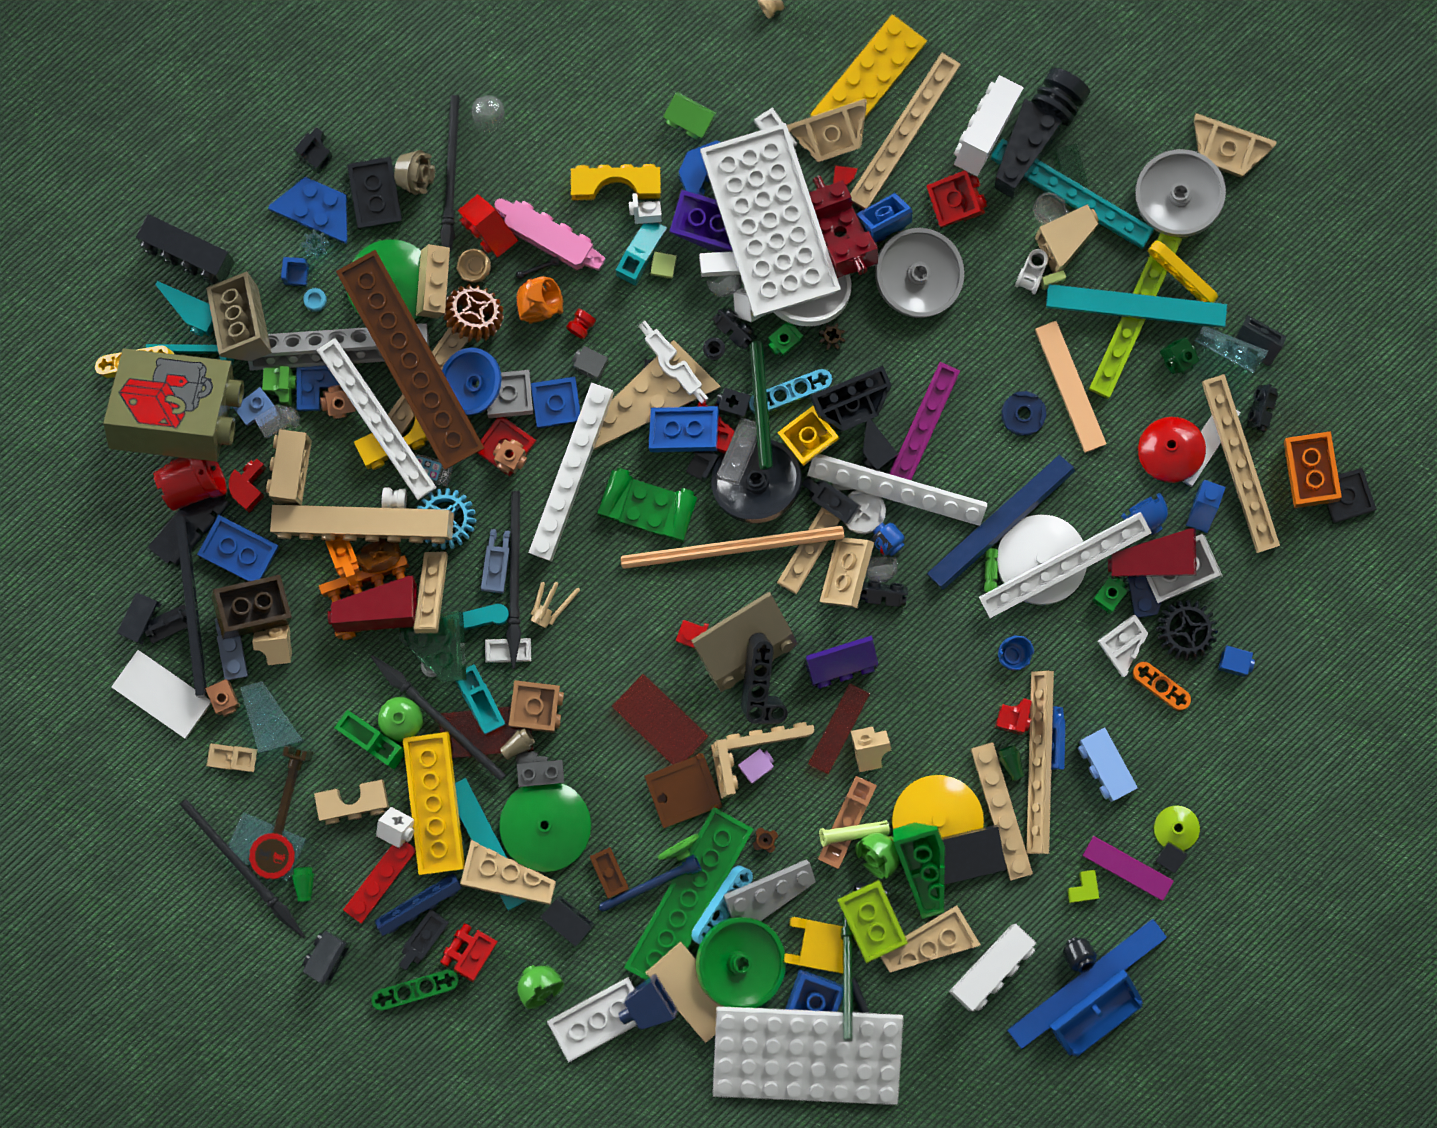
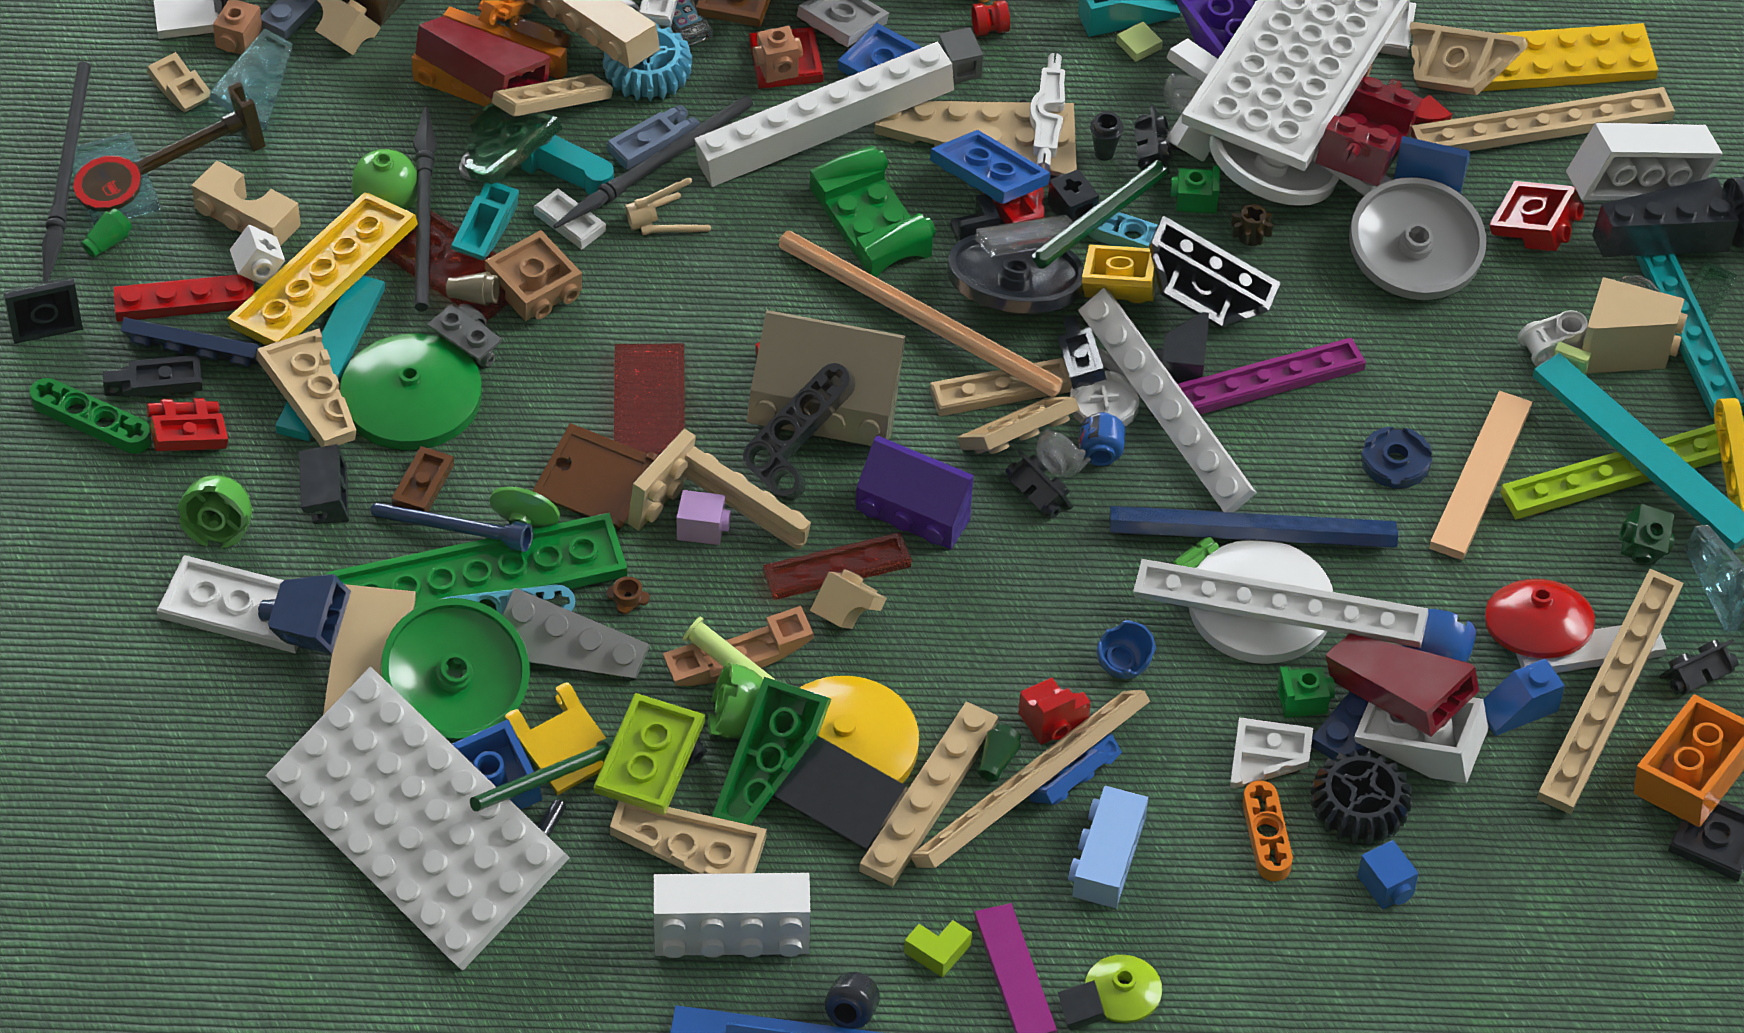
camera: 45 degrees right, 30 degrees down
(370, 739) = (332, 174): green slope -> none

